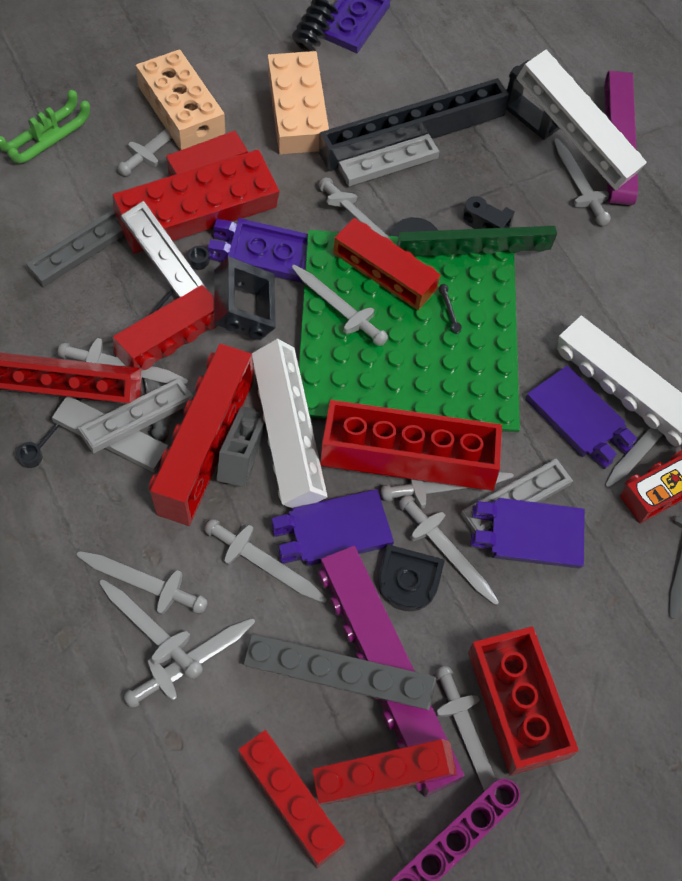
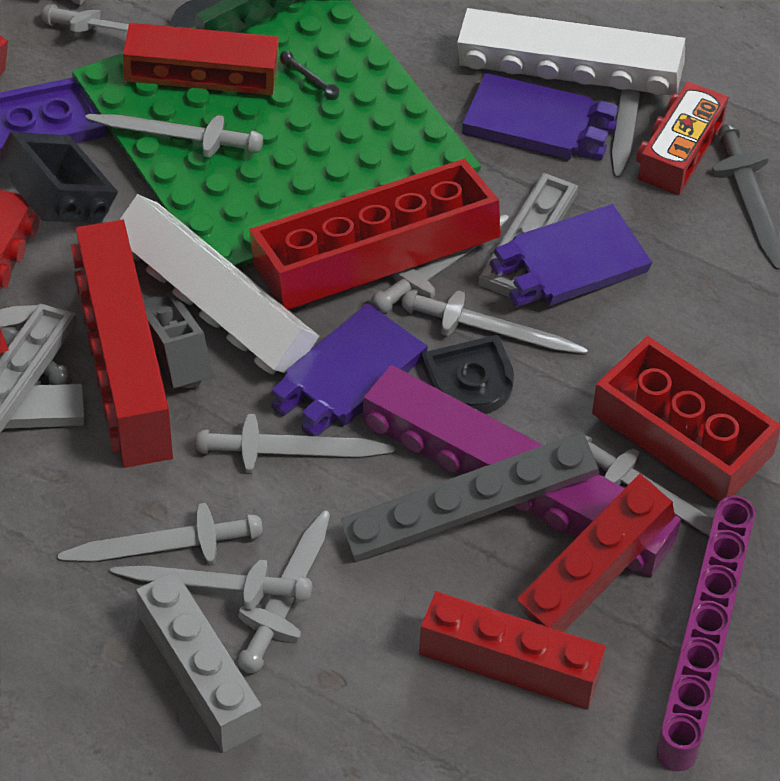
camera: 30 degrees left, 10 degrees down
(98, 682) = (199, 661): none -> light grey brick

